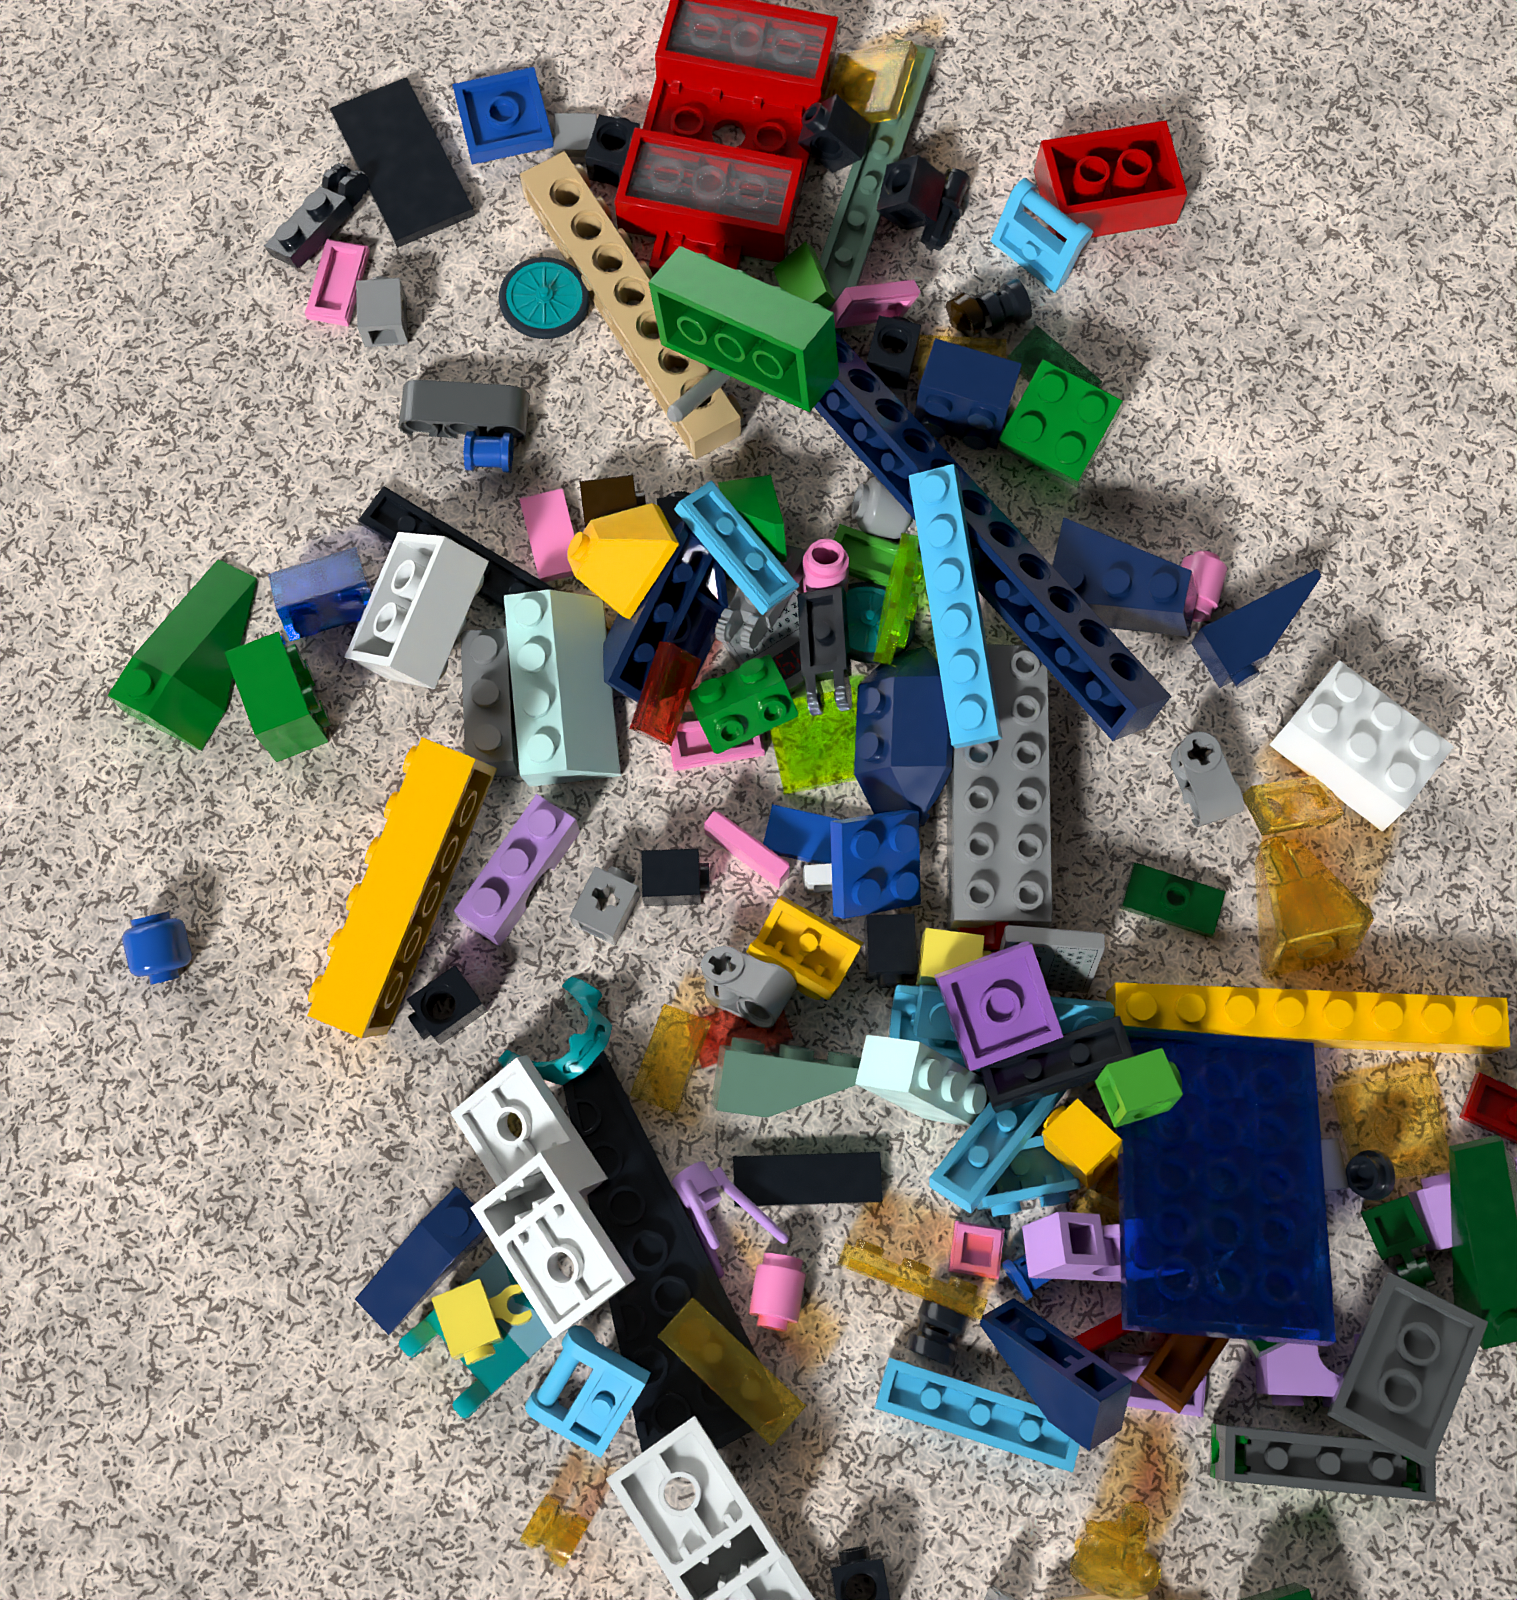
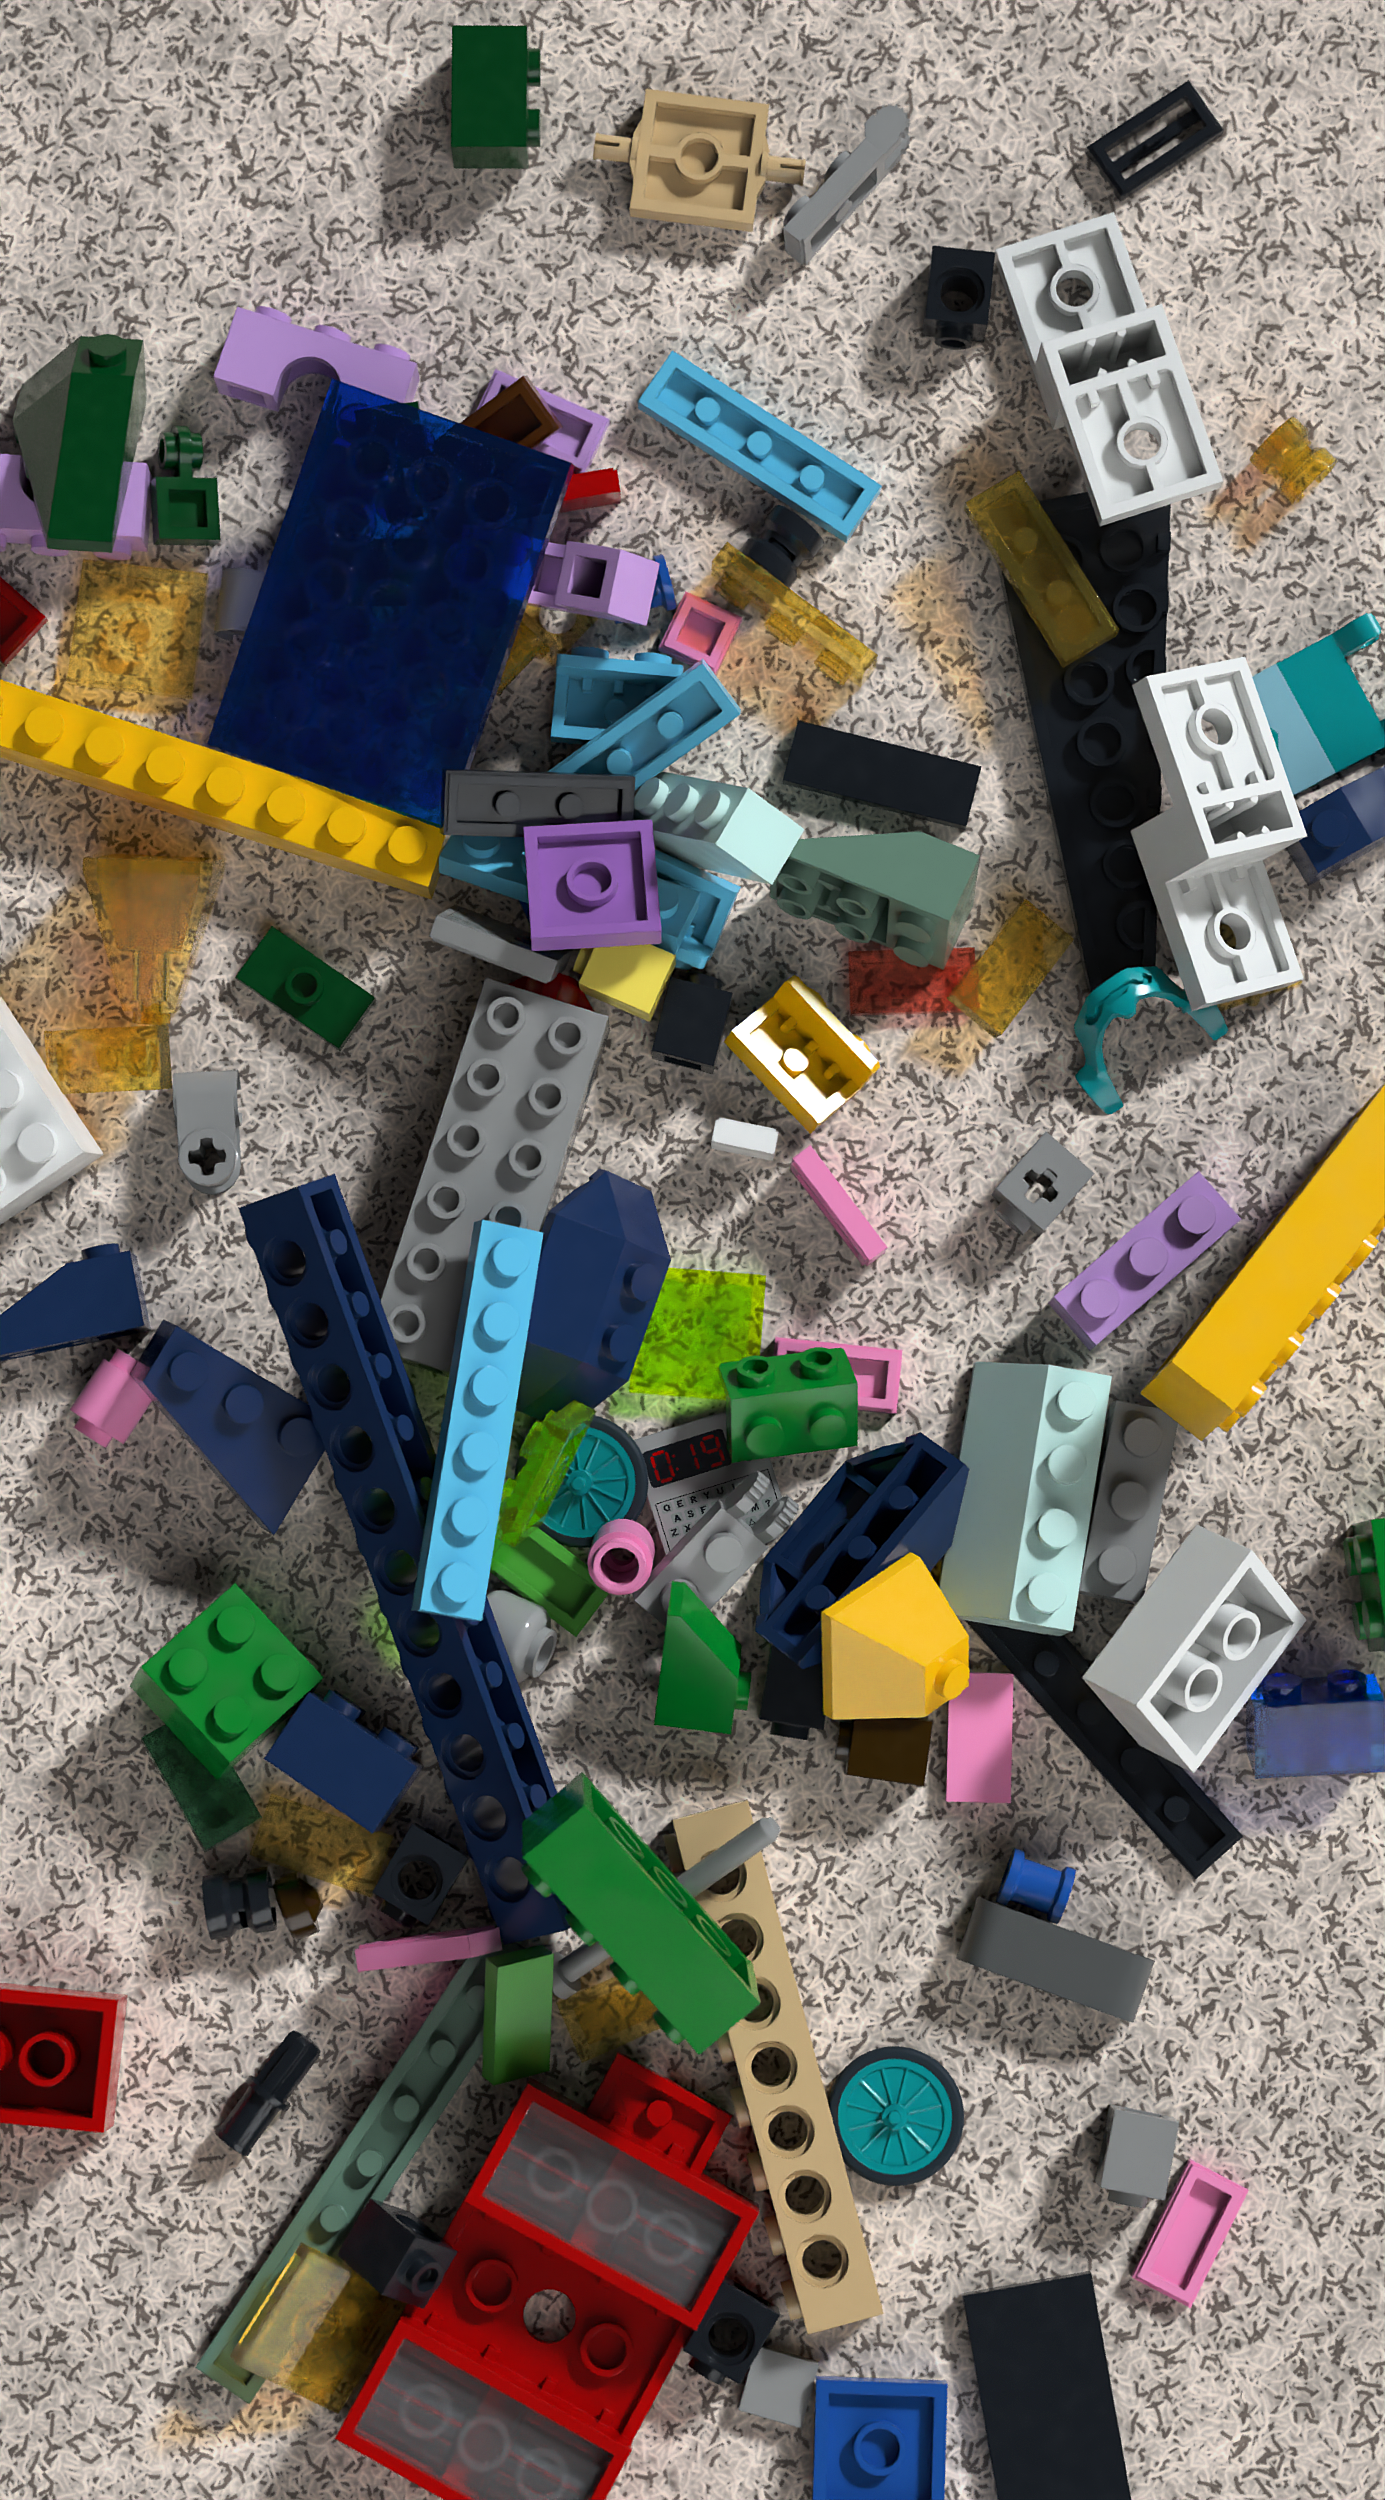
camera: 165 degrees left, 10 degrees up
(318, 215) = (1194, 2348): black hinge -> none
(448, 985) = (1256, 1129): black brick -> none
(471, 1317) = (1335, 717): light yellow brick -> none
(600, 1402) = (1207, 580): medium azure plate -> none
(665, 693) = (888, 1440): clear red tile -> none
(673, 877) = (943, 1196): black brick -> none
(699, 1192) = (1020, 793): lavender plant -> none
(736, 547) = (738, 1609): medium azure tile -> none
(748, 990) = (883, 1015): light grey piece -> none
(777, 1291) = (957, 651): bright pink brick -> none
(799, 835) = (746, 1204): blue tile -> none
(825, 646) = (656, 1445): black hinge -> none
(875, 863) = (681, 1129): blue plate -> none
(911, 193) = (313, 2123): black brick -> none
(1033, 244) = (151, 1991): medium azure plate -> none
(1062, 1377) = (655, 458): dark blue slope -> none
(1081, 1142) = (540, 706): yellow brick -> none
(1115, 1555) = (655, 241): clear yellow hair -> none
(1139, 1087) = (454, 733): bright green brick -> none
(1317, 1463) = (380, 276): dark grey piece -> none
(1371, 1175) = (195, 573): black plate -> none
(1408, 1369) = (249, 336): dark grey plate -> none

